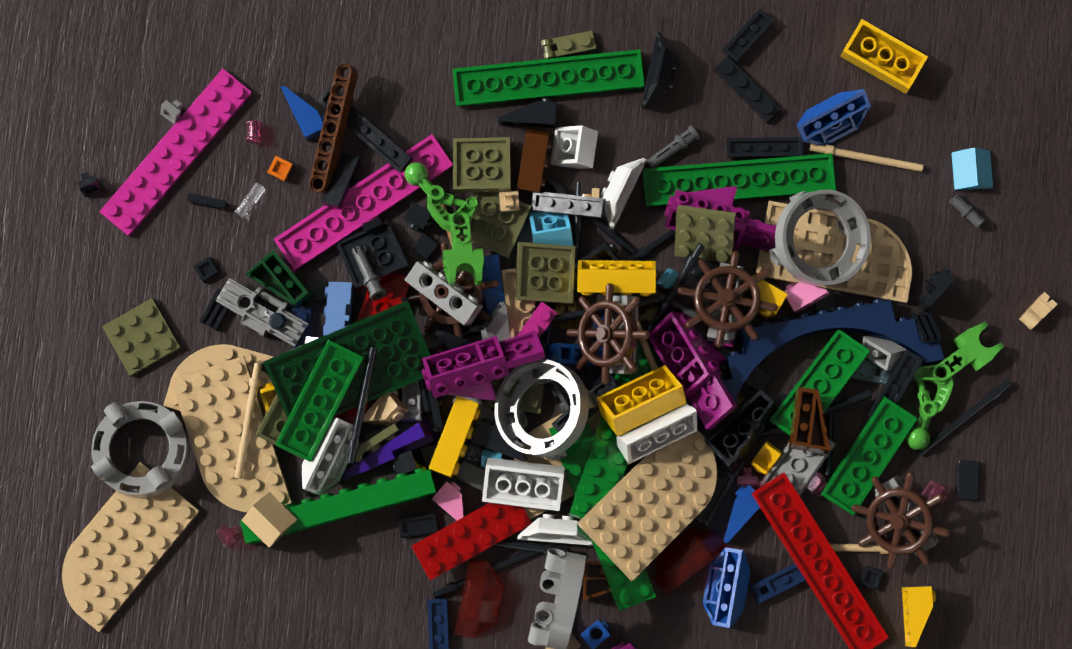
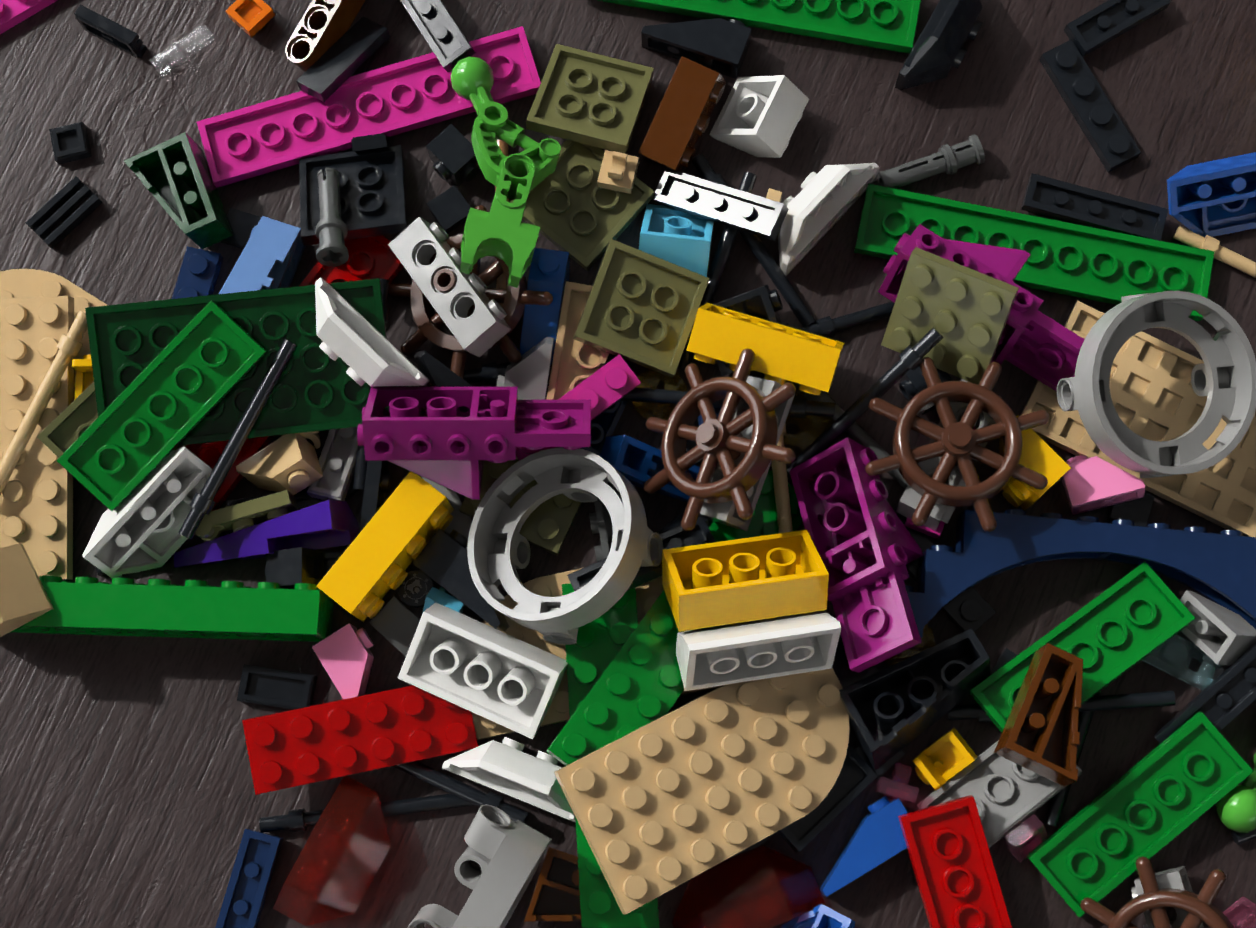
camera: 20 degrees right, 5 degrees down
(259, 318) = (124, 244): light grey piece -> none
(410, 339) = (360, 344): none -> white wedge
(667, 279) = (856, 384): medium azure tile -> none

